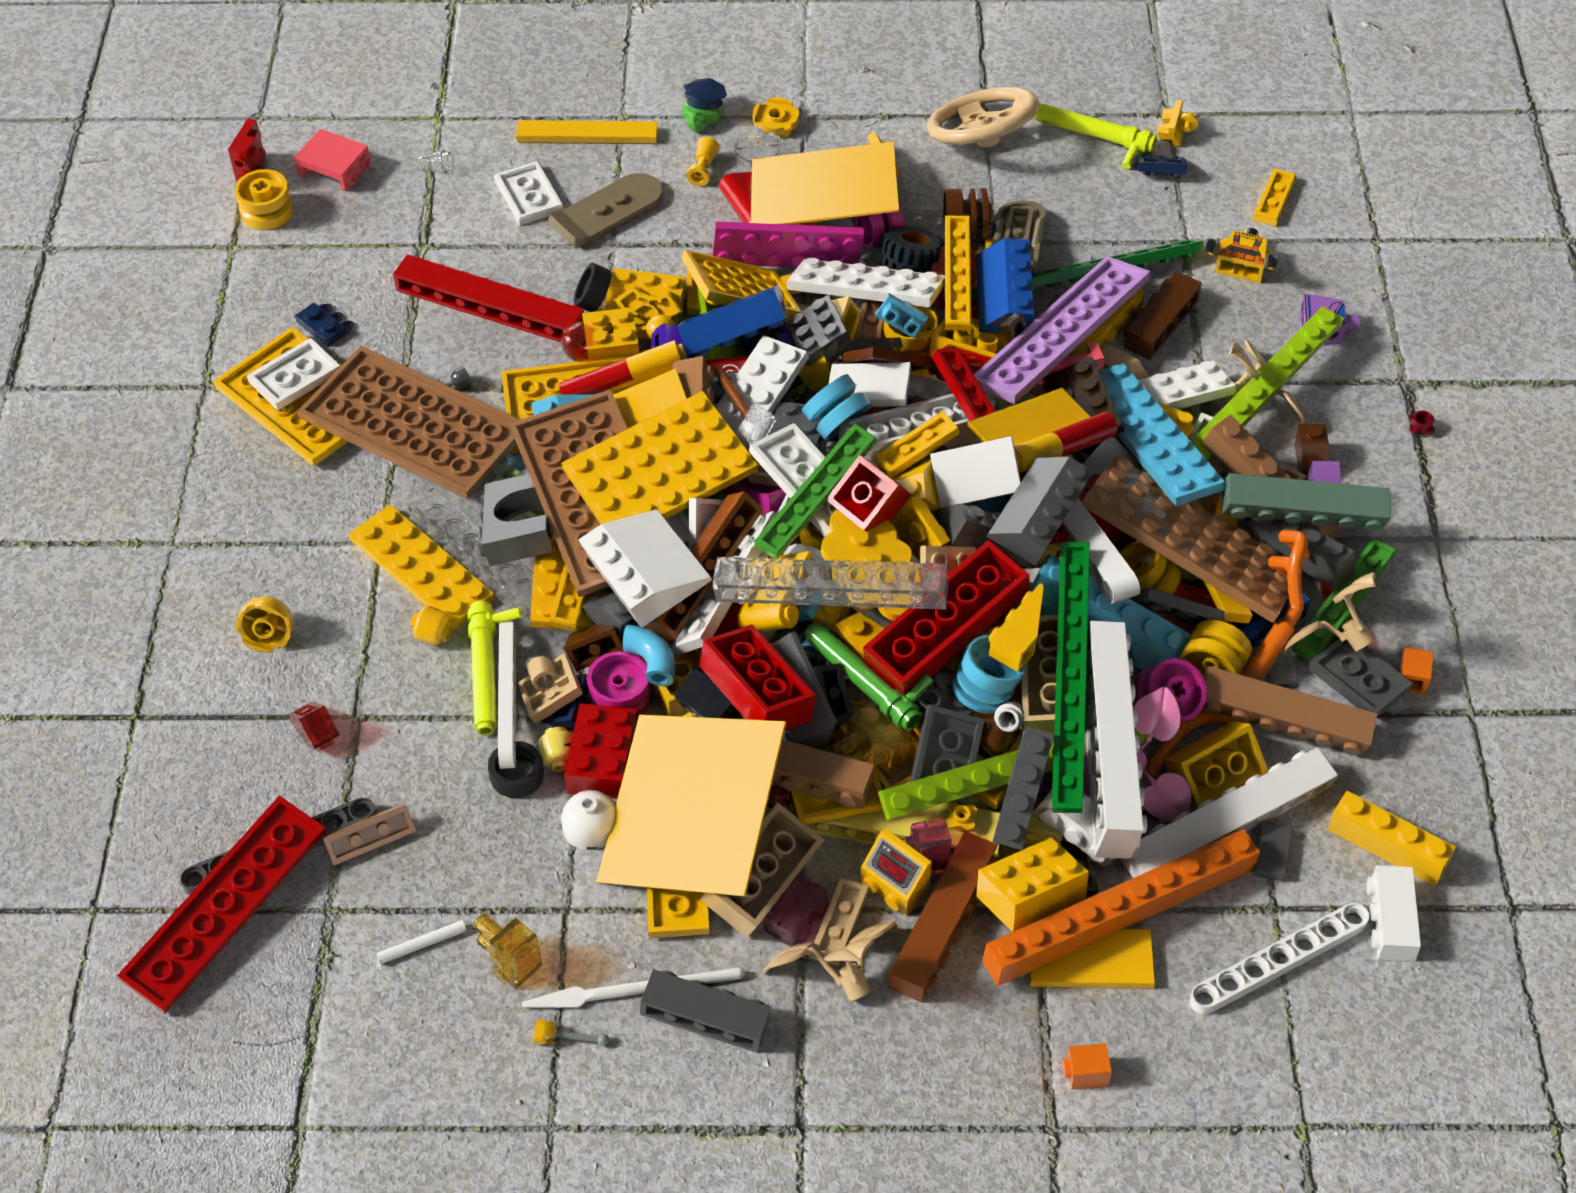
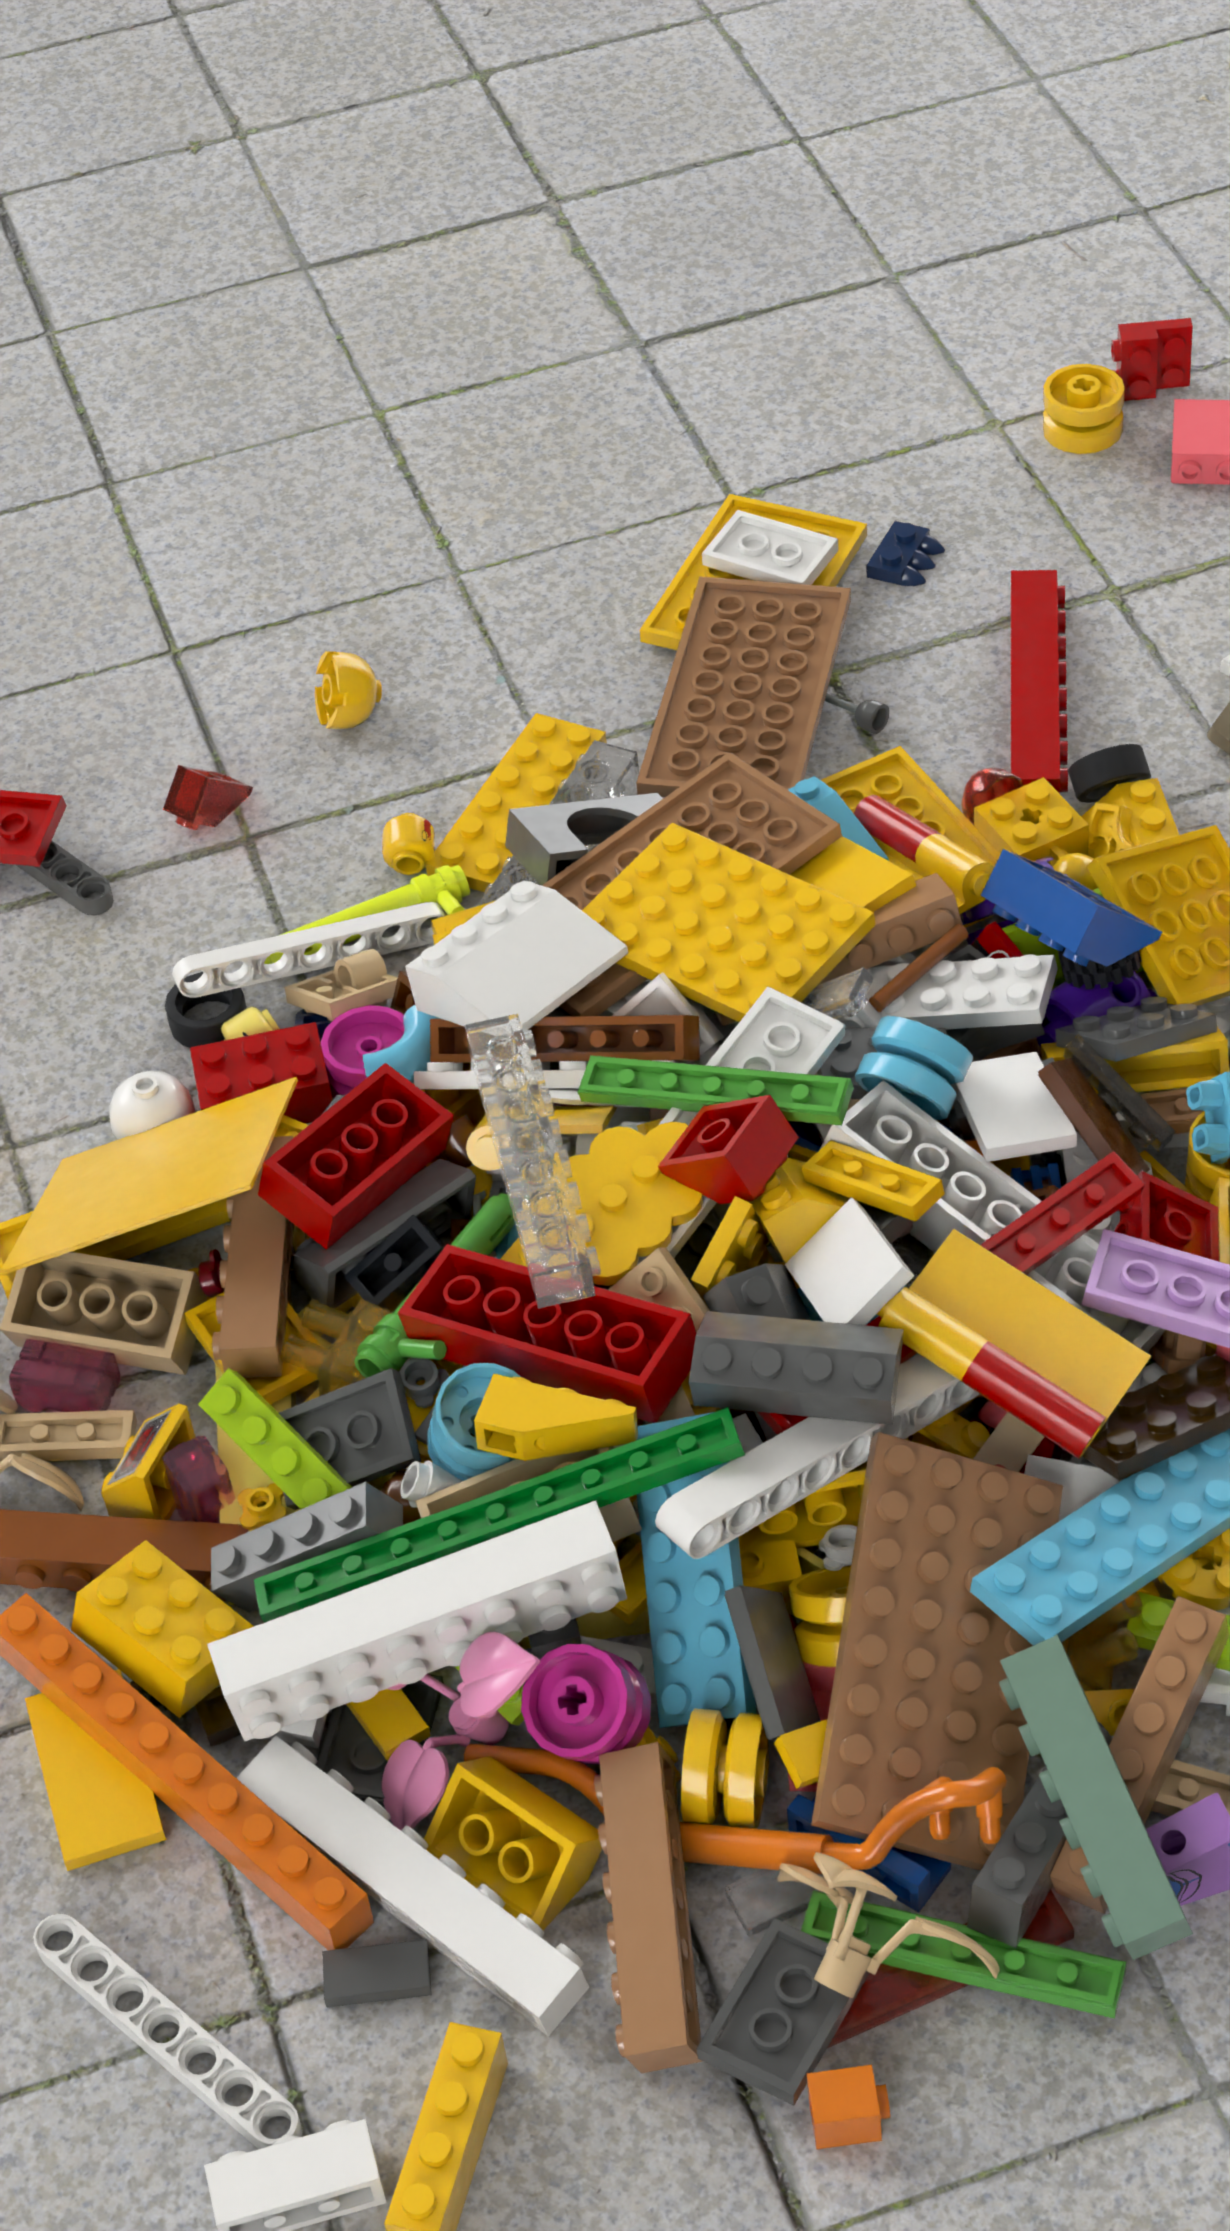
camera: 75 degrees right, 5 degrees down
(368, 834) = (55, 910): medium nougat plate -> none

